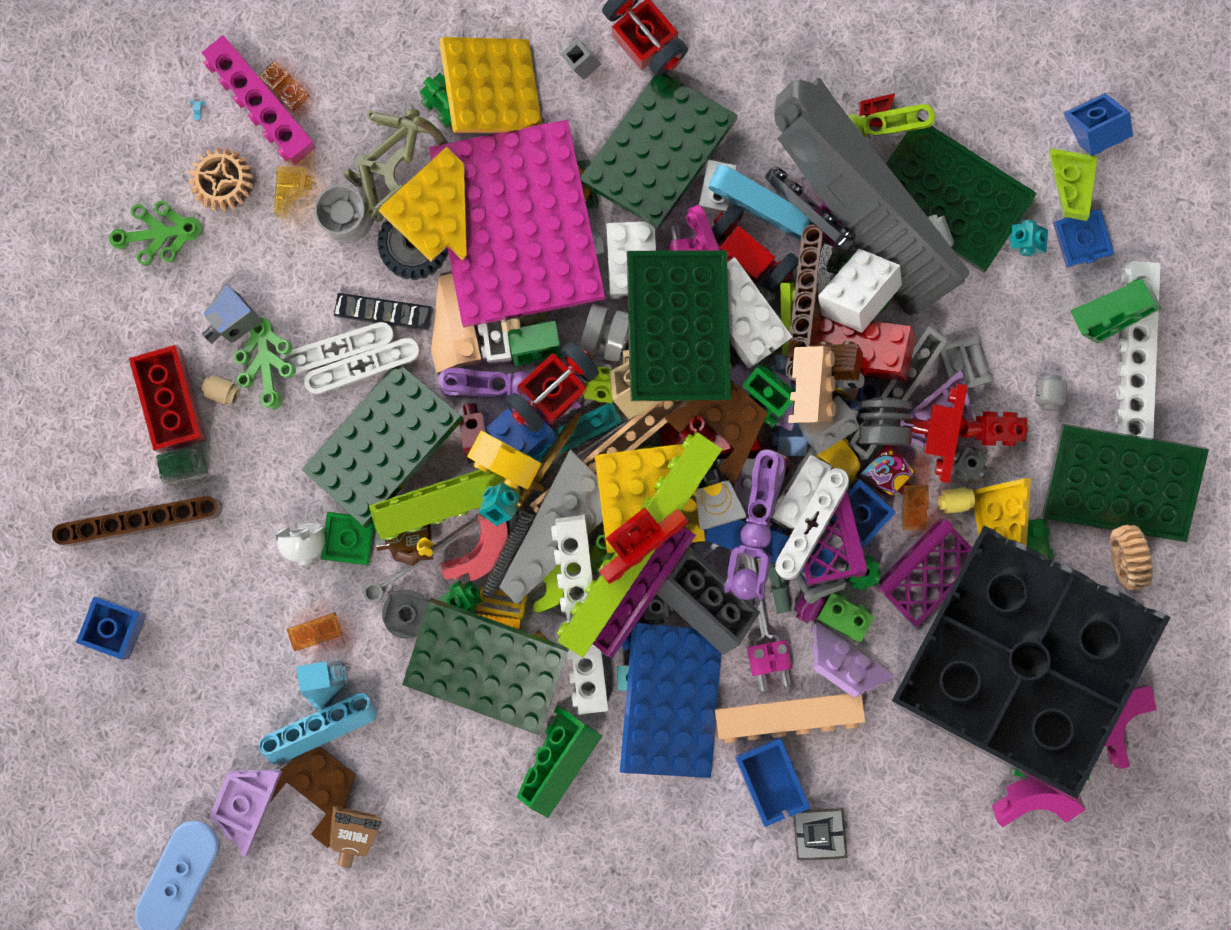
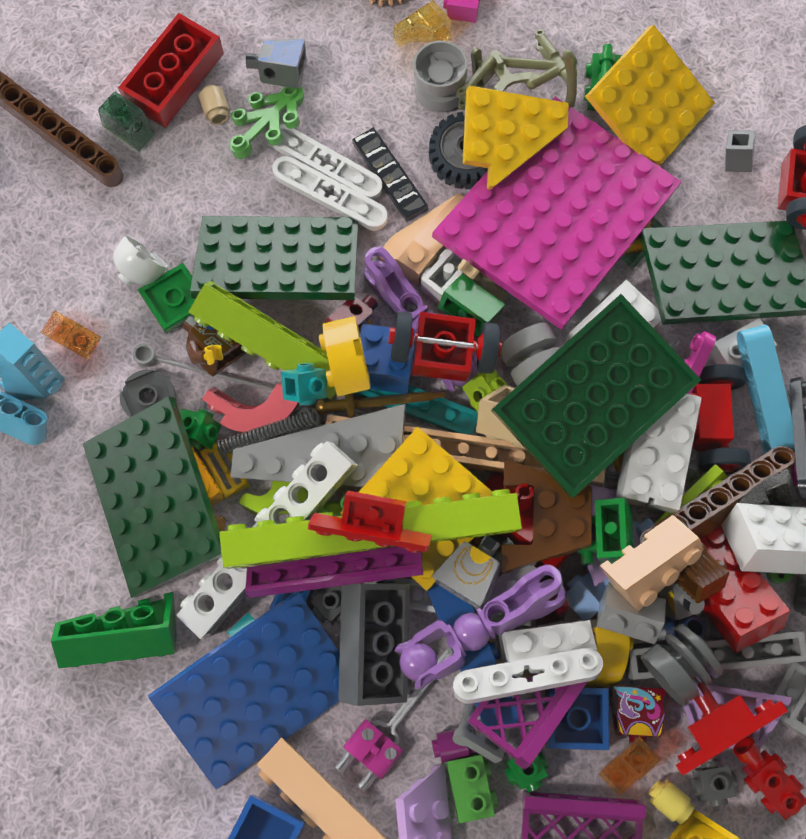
camera: 50 degrees right, 10 degrees down
(779, 591) = (440, 708): sand green axle -> none

